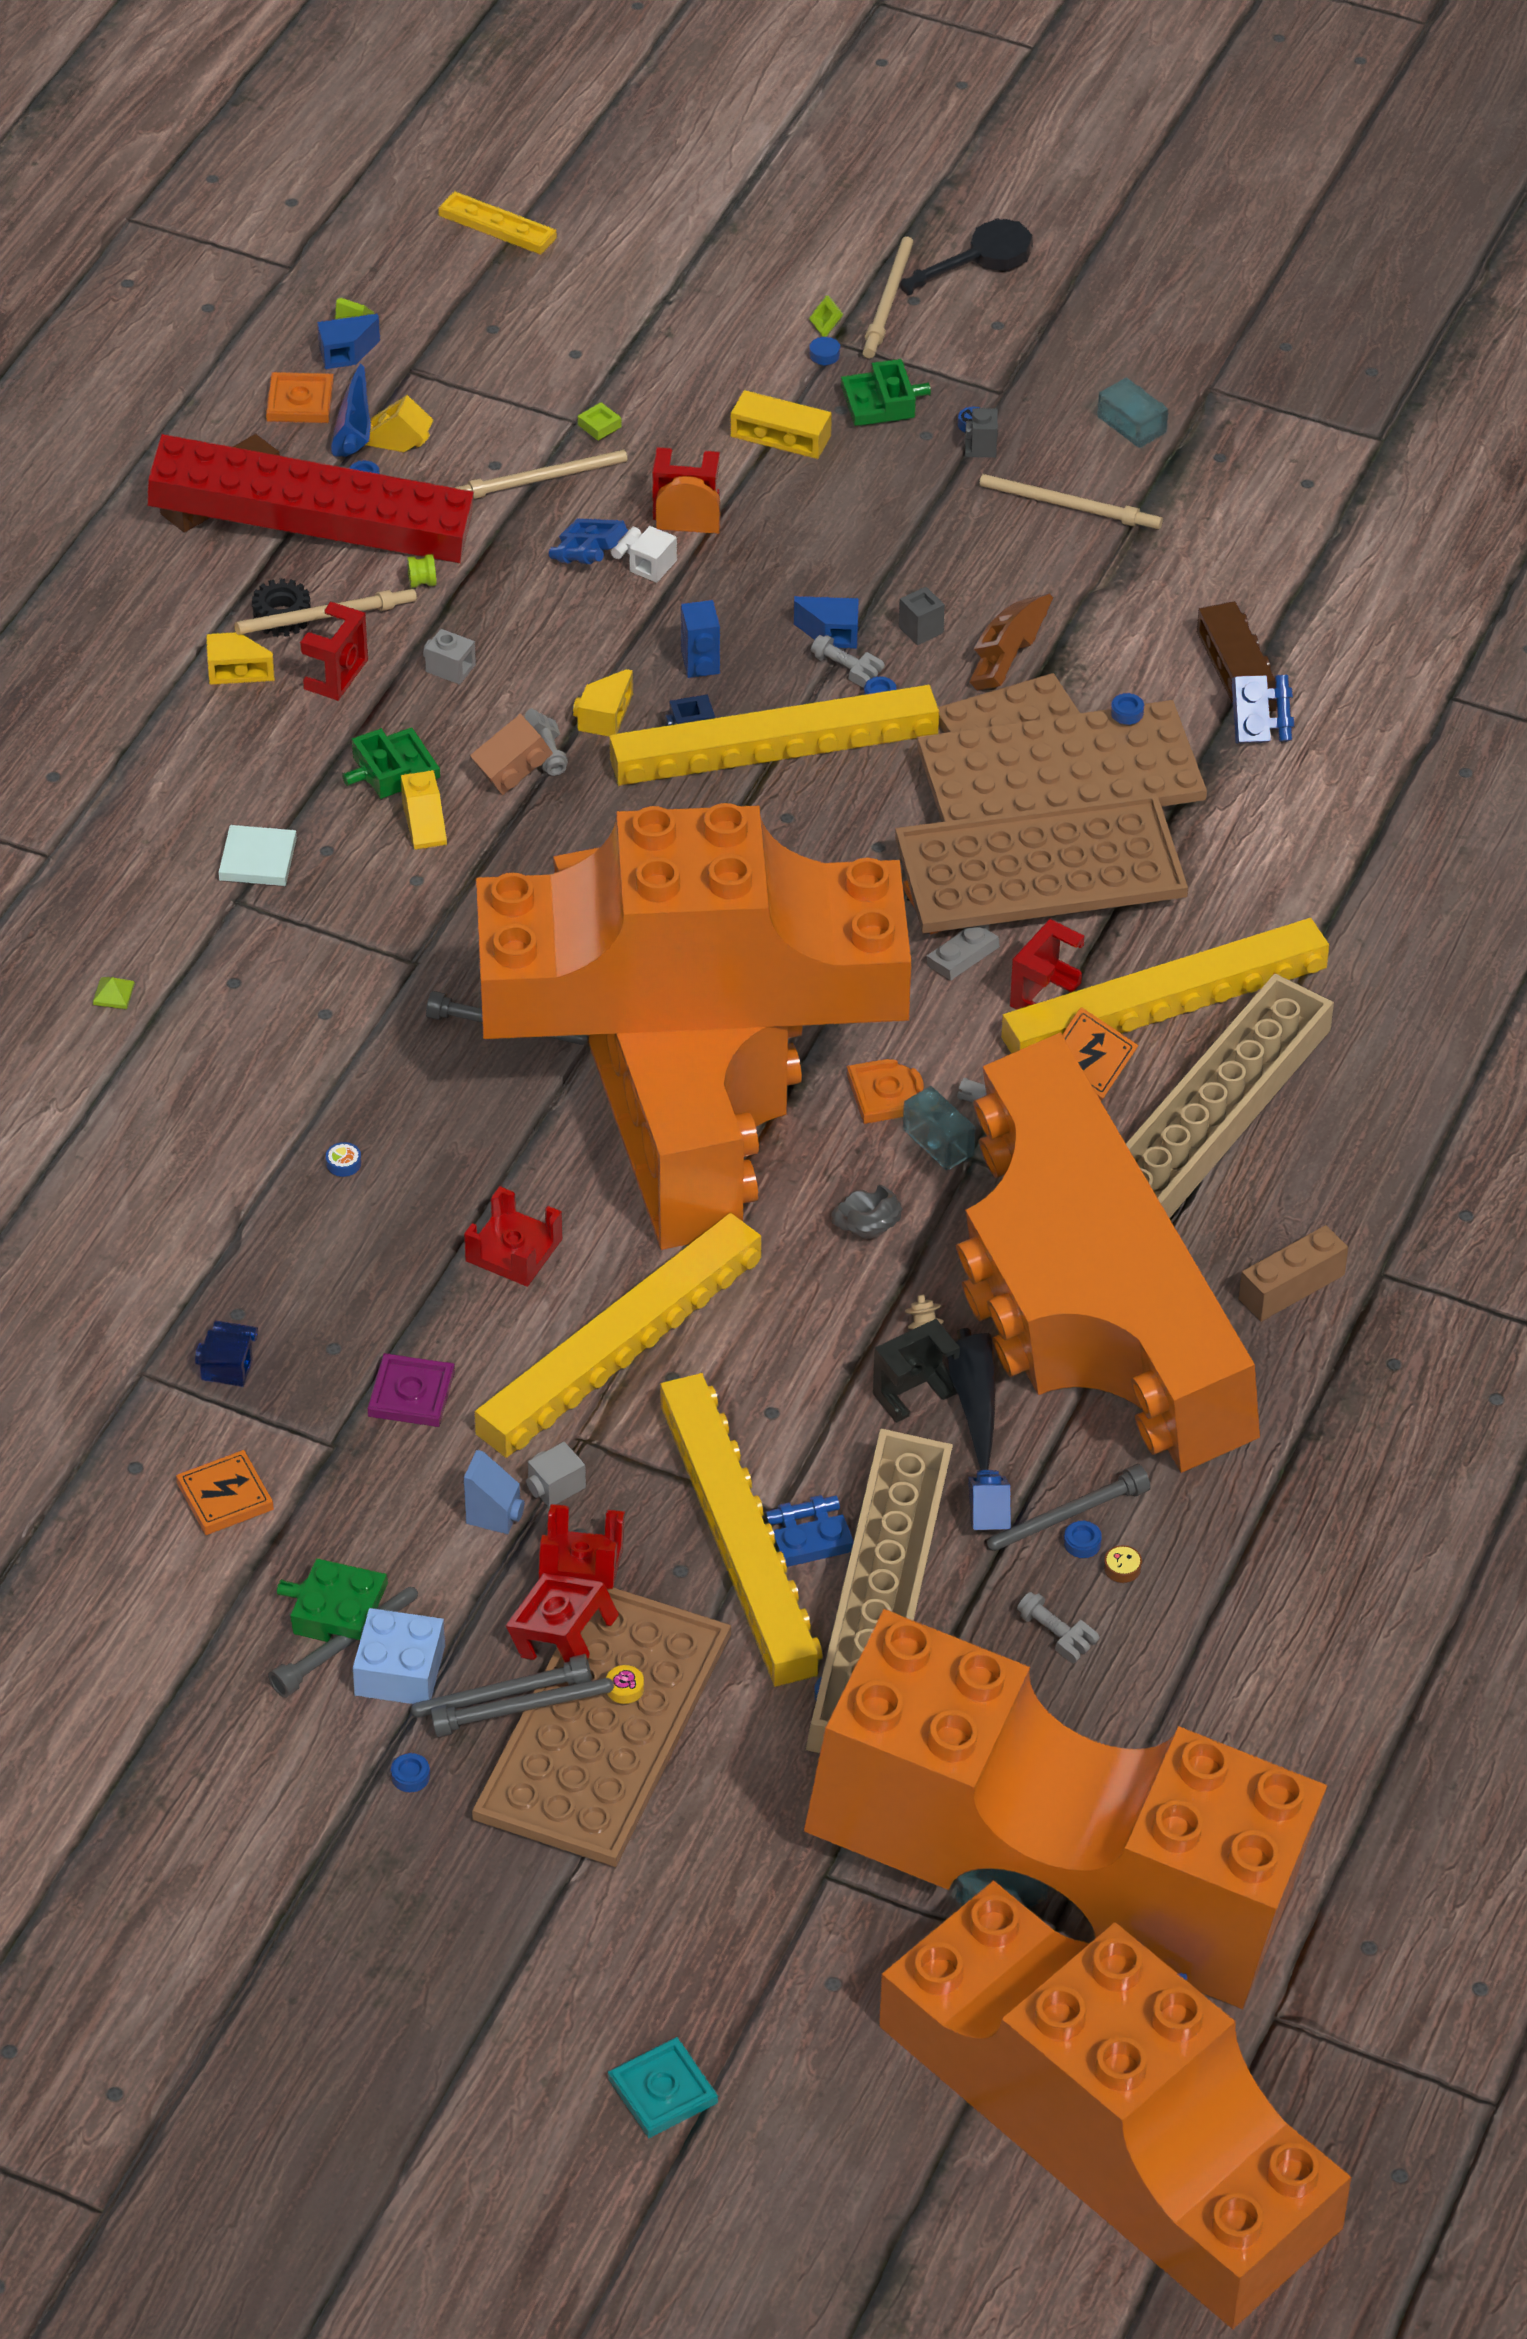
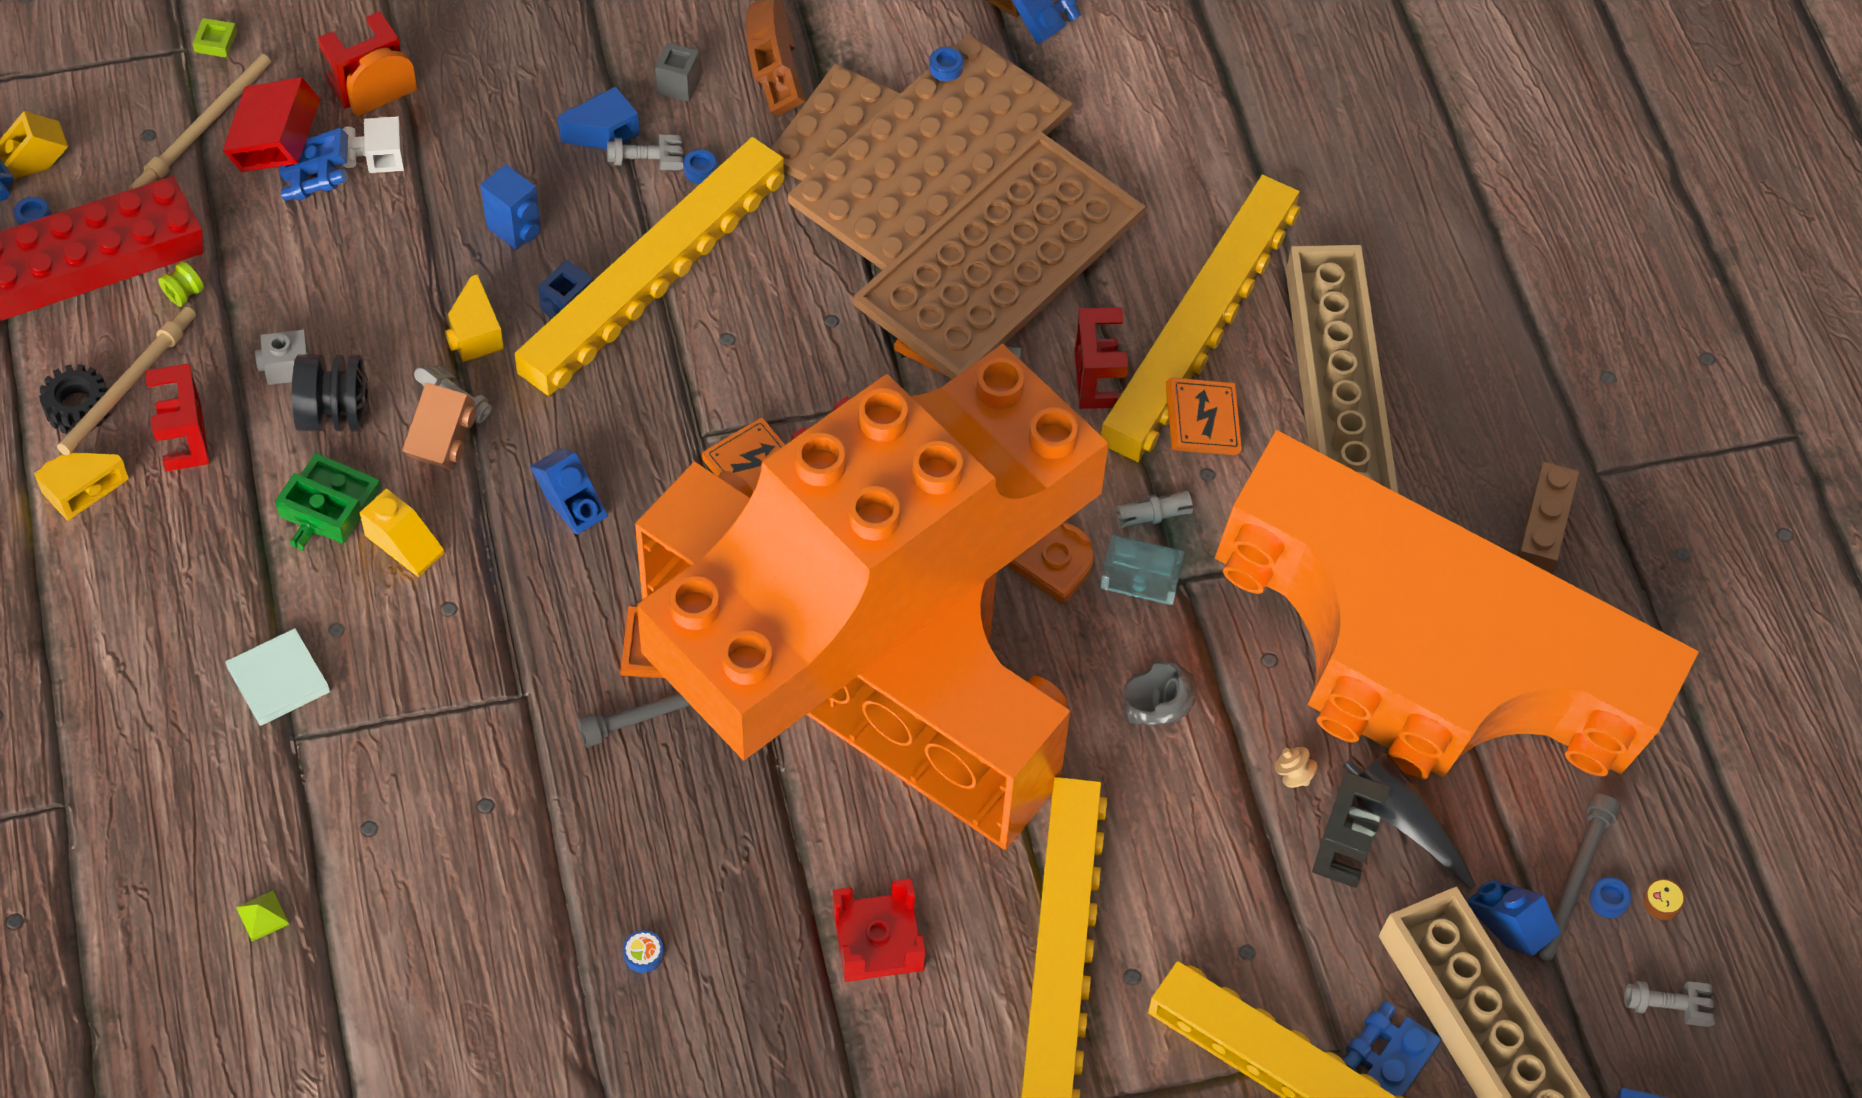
camera: 40 degrees left, 10 degrees up
(453, 690) = (332, 393): none -> black wheel
(567, 835) = (569, 489): none -> blue slope
(580, 496) = (271, 125): none -> red brick

